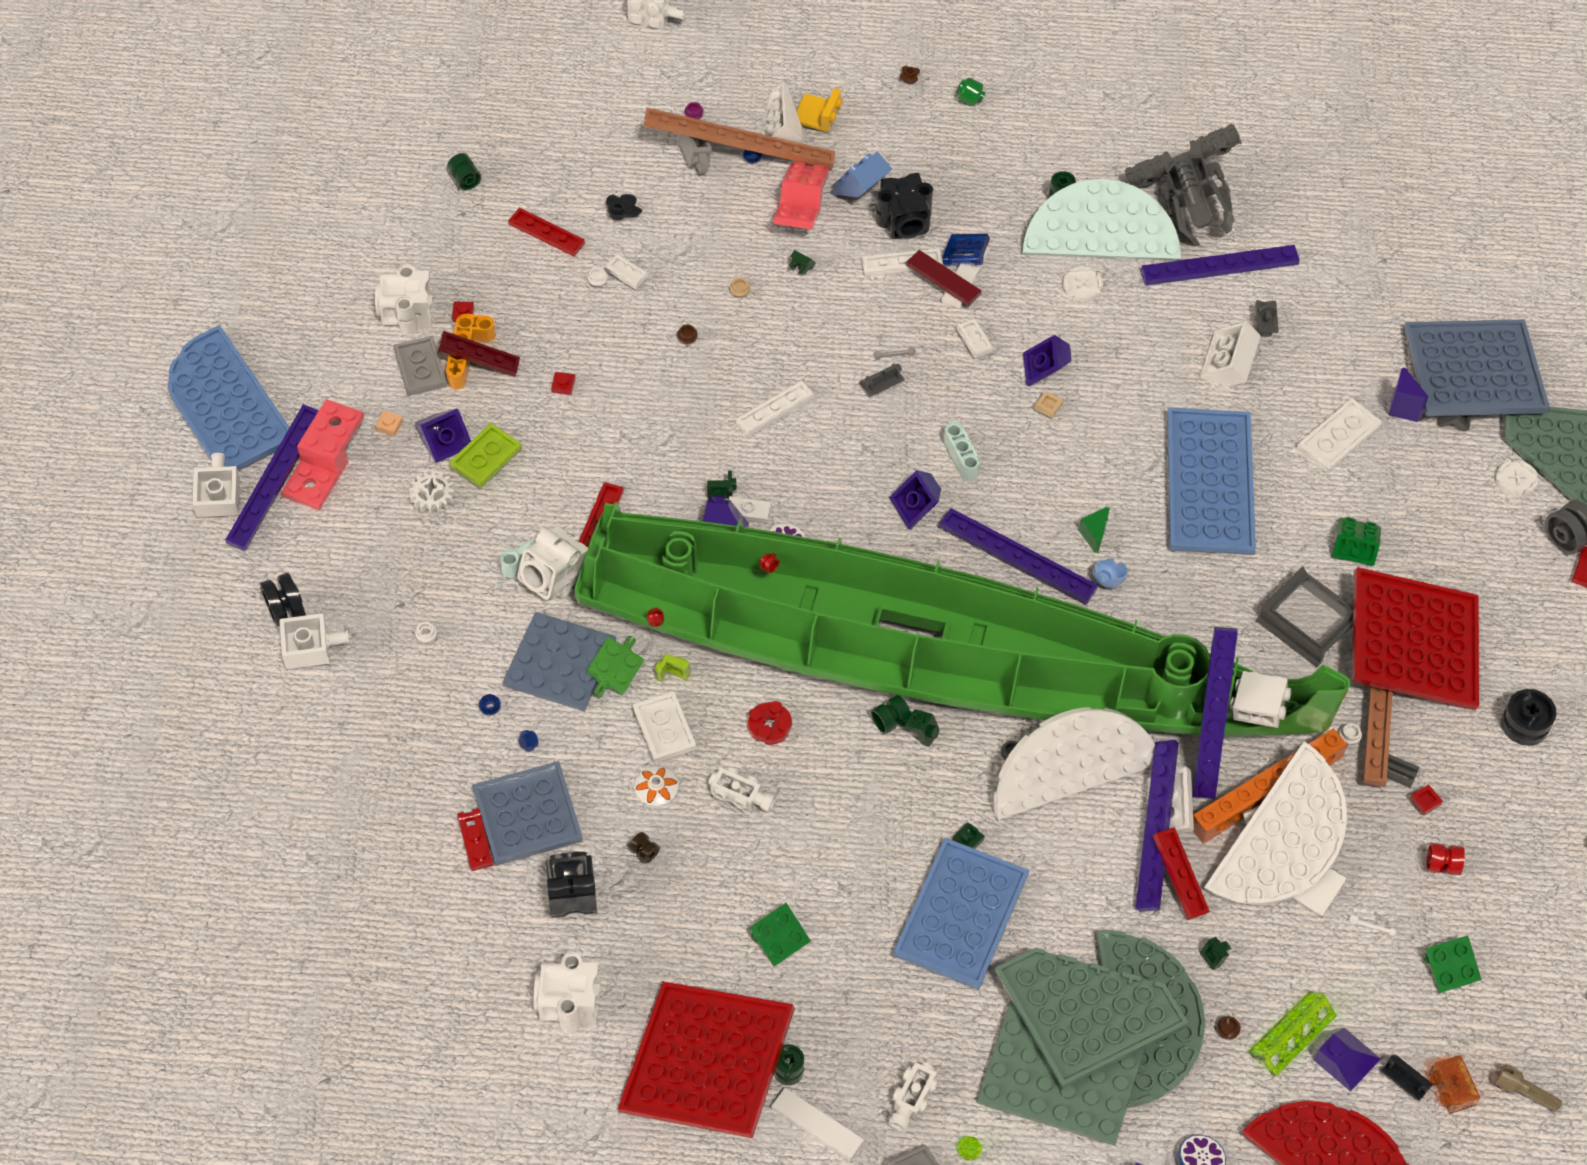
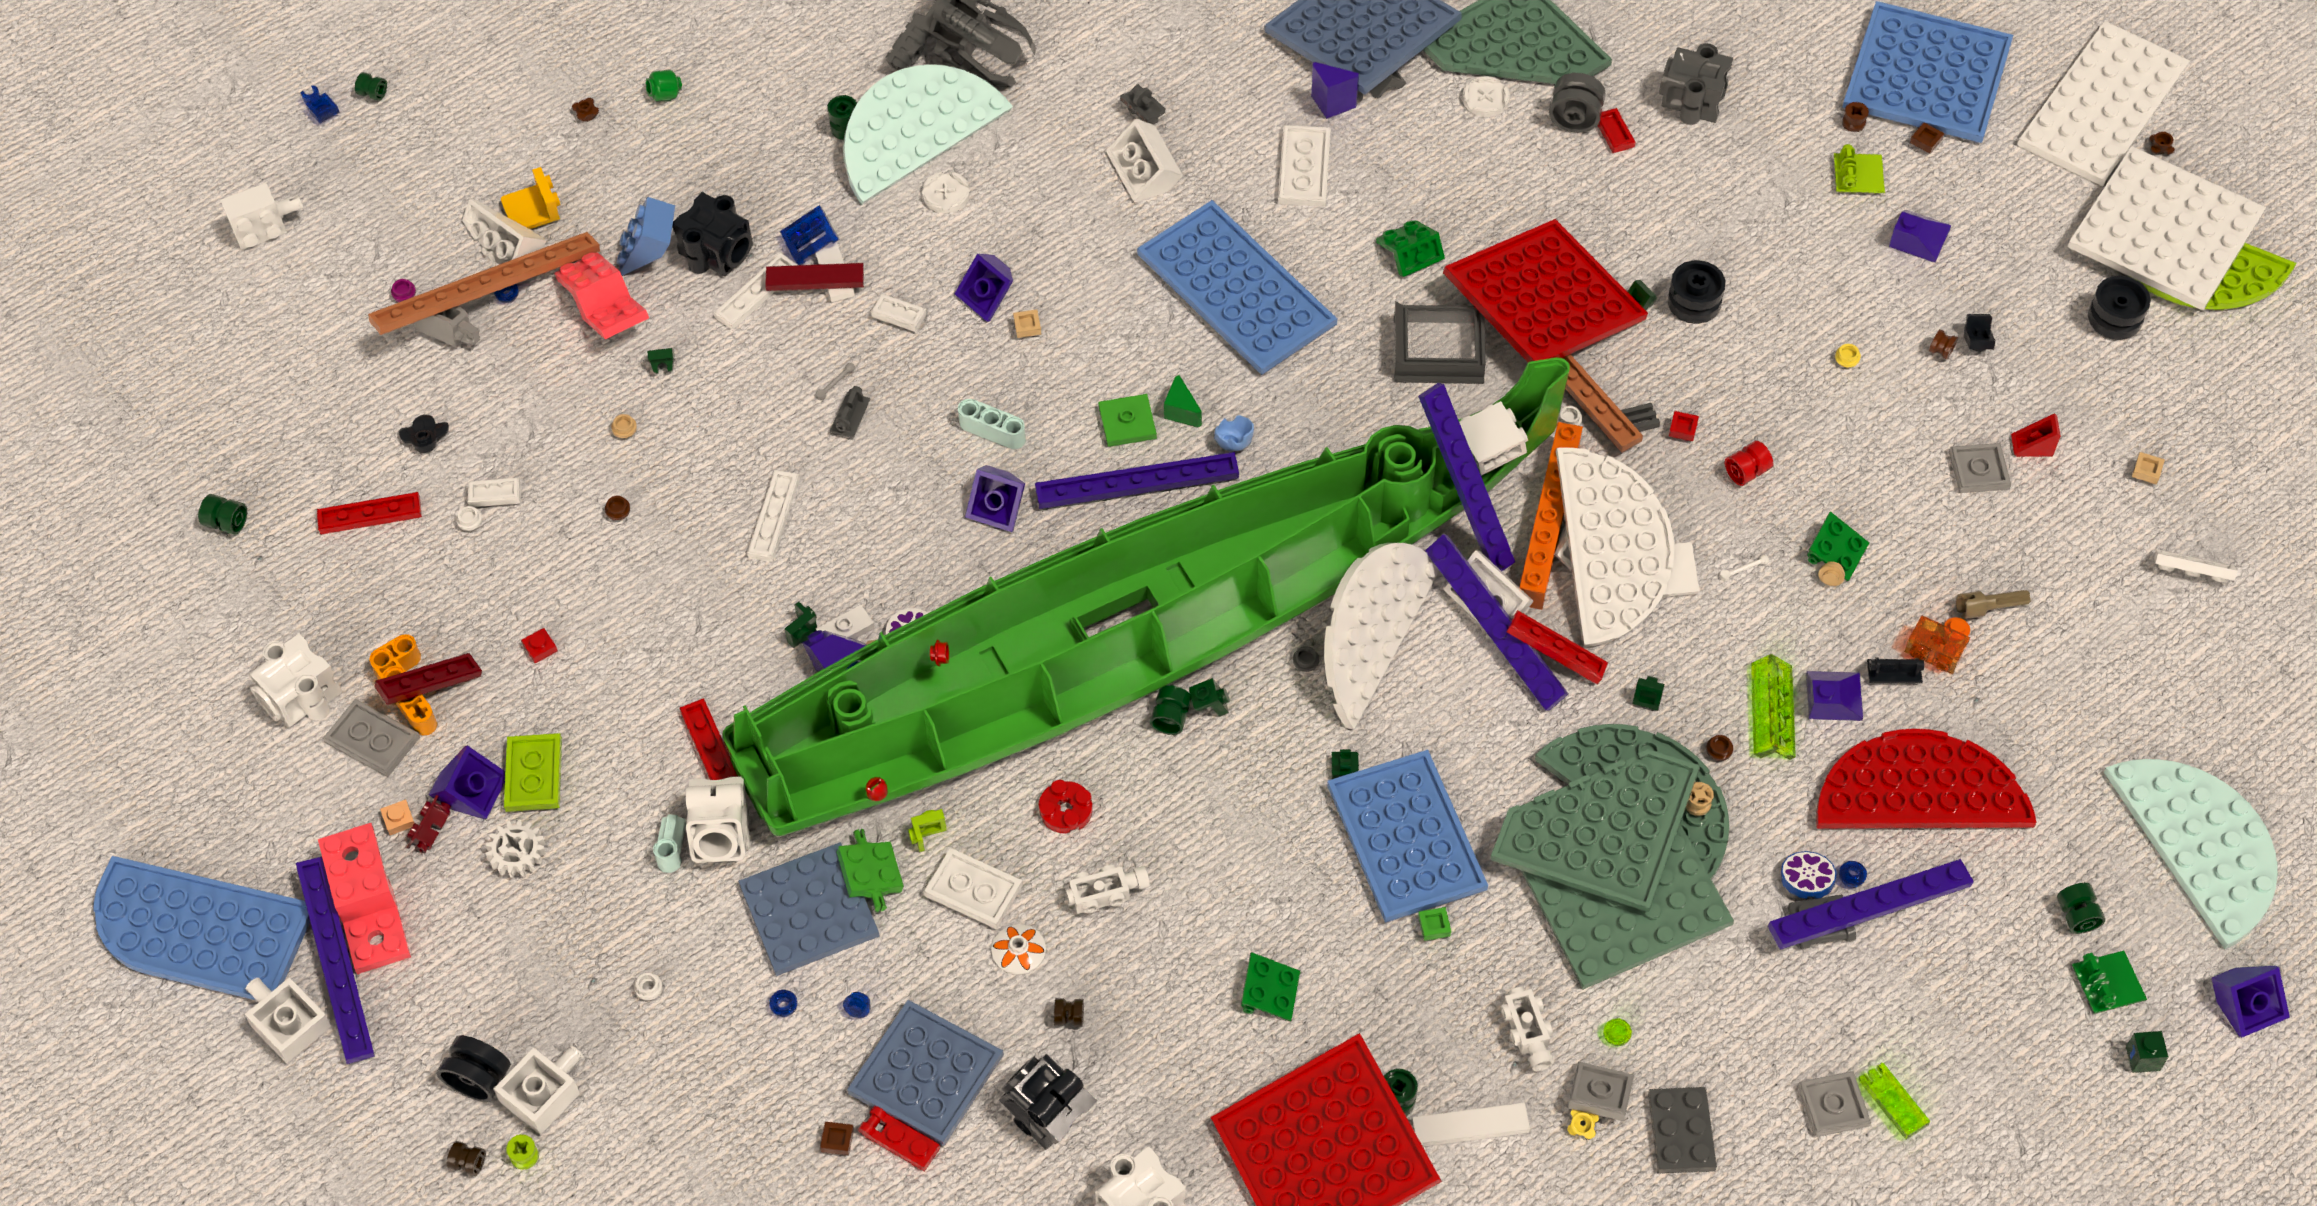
camera: 40 degrees left, 0 degrees up
(234, 650) = (466, 1158): none -> dark brown wheel
(270, 674) = (521, 1158): none -> lime wheel
(392, 442) = (422, 834): none -> dark red hinge
(439, 808) = (837, 1138): none -> reddish brown plate
(462, 308) = (360, 652): red plate -> none
(922, 982) = (1434, 923): none -> bright green plate
(1052, 513) = (1127, 420): none -> bright green plate
(1177, 1042) = (1700, 792): none -> tan wheel
(1219, 265) = (1051, 89): dark purple plate -> none
(1429, 978) = (1831, 574): none -> tan plate
(1483, 1085) = (1958, 625): none -> orange plate
(1487, 691) = (1642, 294): none -> dark green tile

